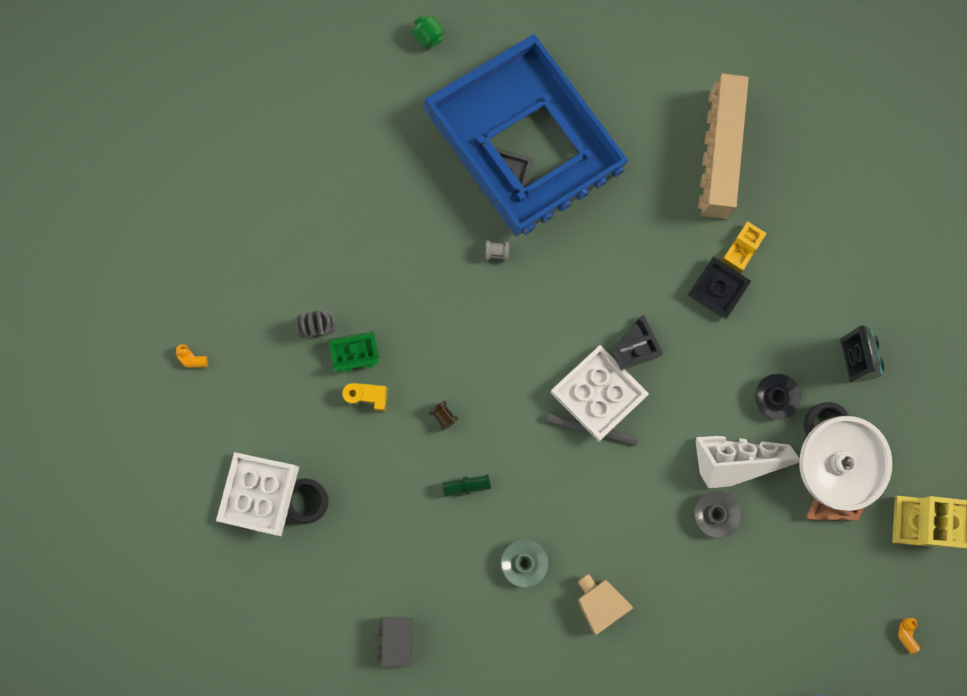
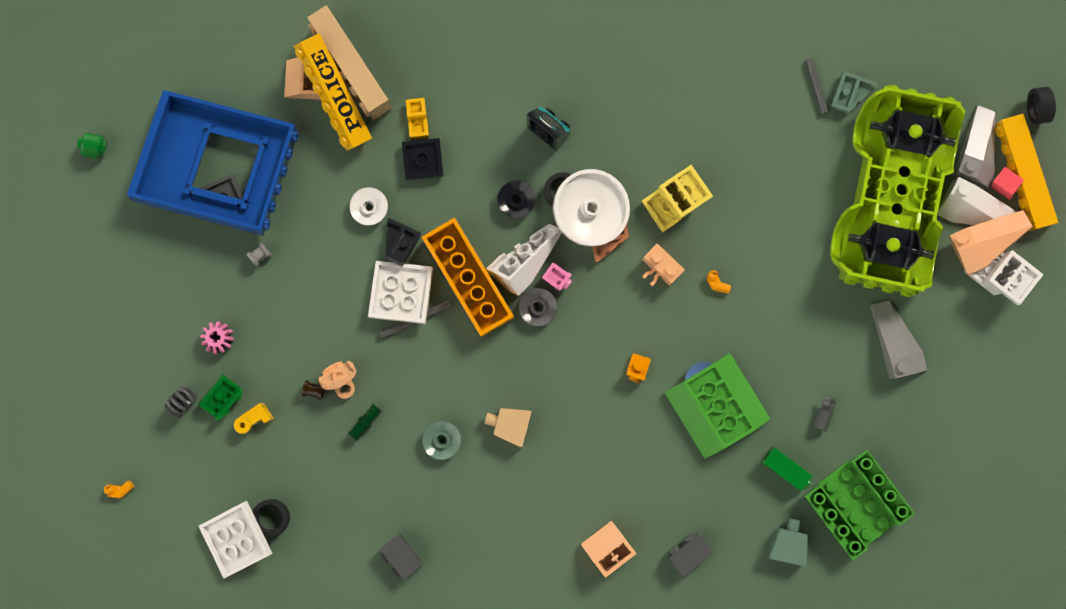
camera: 30 degrees left, 5 degrees up
(405, 293) = (217, 329): none -> bright pink gear
(477, 421) = (337, 376): none -> light nougat tile
(637, 279) = (365, 197): none -> white dish
(670, 126) = (297, 83): none -> light nougat slope
(674, 432) = (468, 277): none -> light orange brick
(688, 158) = (332, 92): none -> yellow brick
(758, 501) = (557, 277): none -> bright pink bracket
(766, 652) = (637, 368): none -> light orange bracket
(869, 574) = (662, 265): none -> light nougat brick

